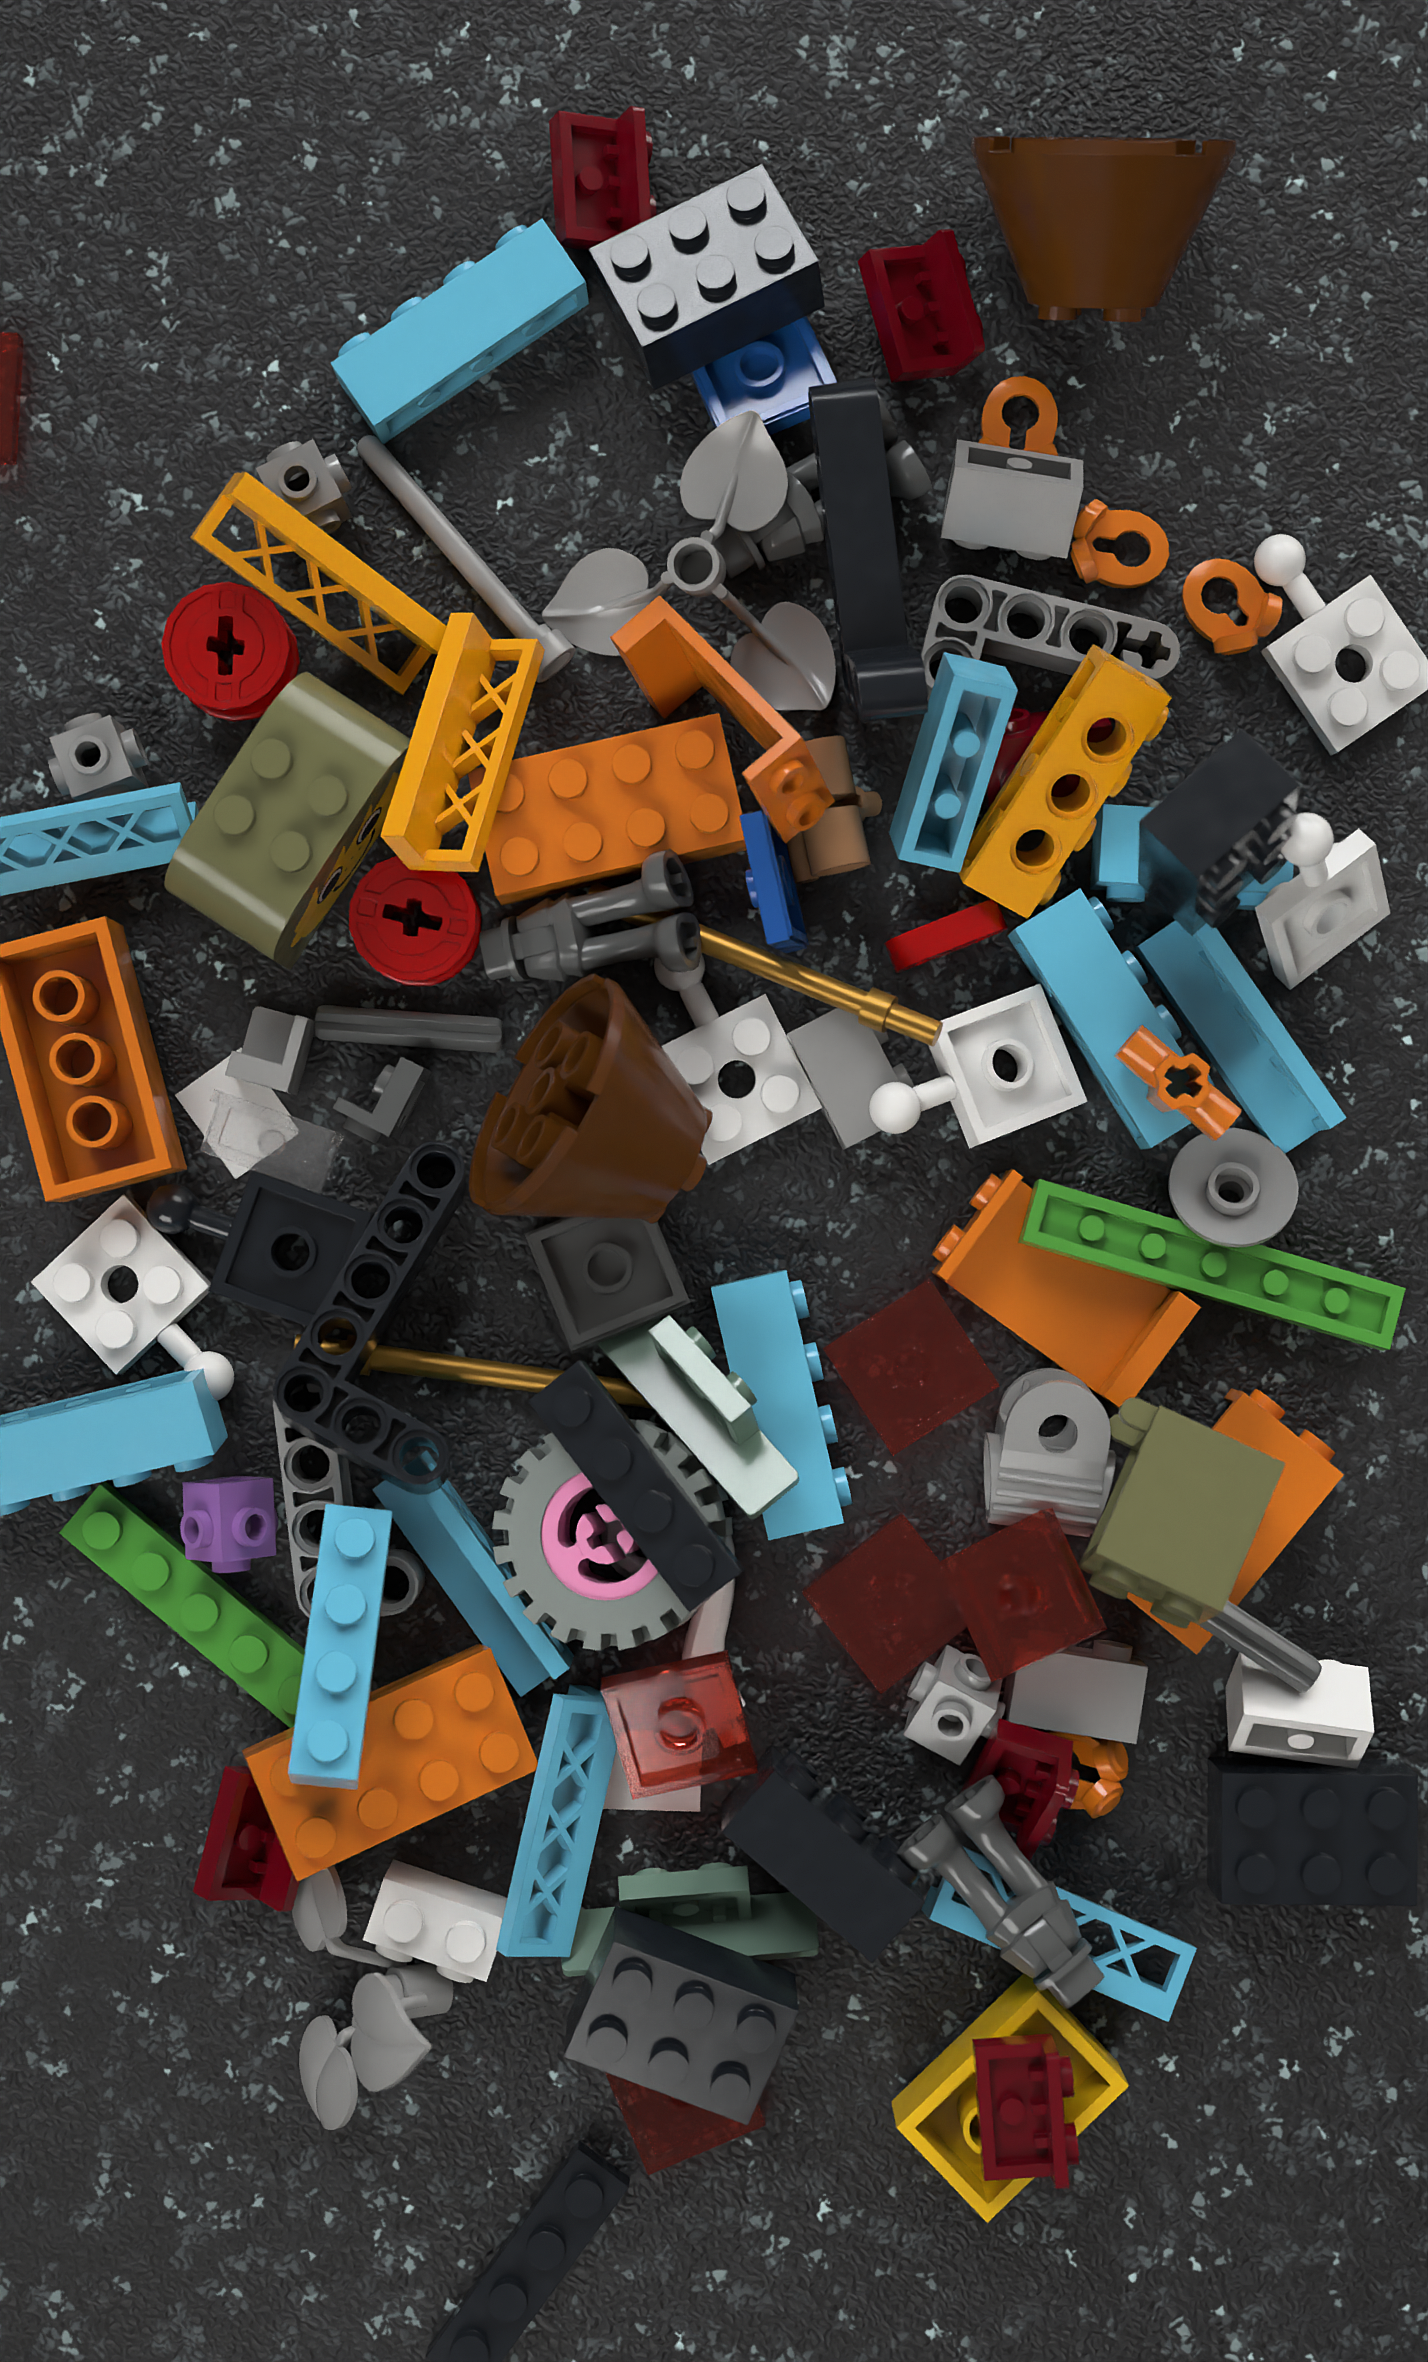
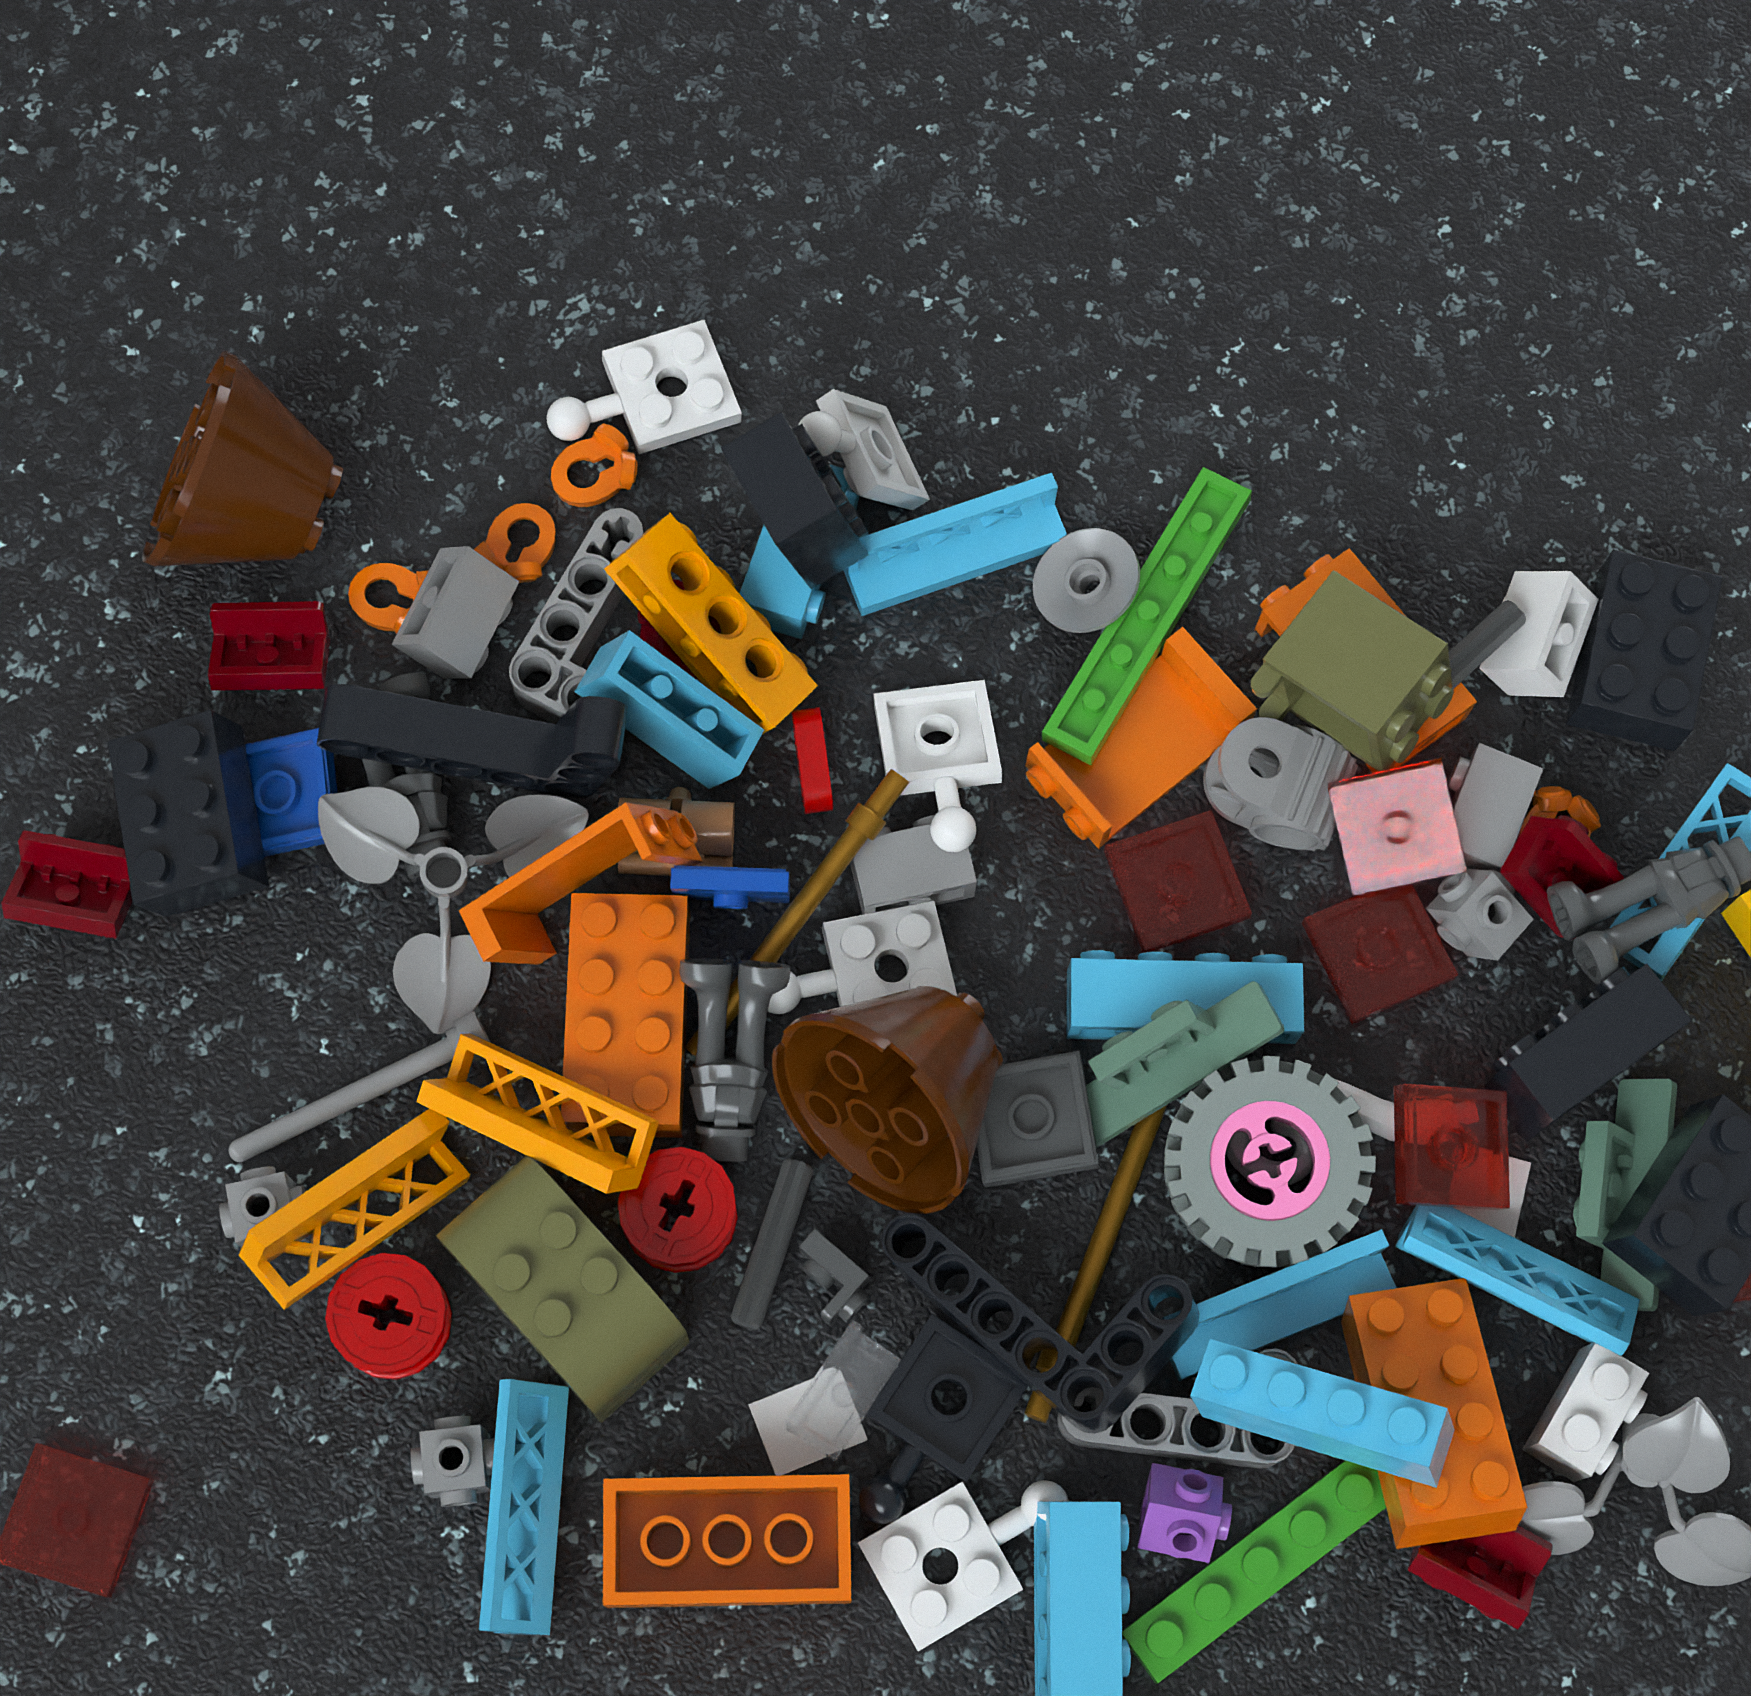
camera: 85 degrees left, 15 degrees down
(273, 1050) = (760, 1369): light grey panel -> none
(460, 329) = (163, 1040): medium azure brick -> none
(636, 1485) = (1233, 1119): black plate -> none
(1101, 1005) = (919, 642): medium azure brick -> none
(1203, 1106) = (1010, 579): orange axle -> none

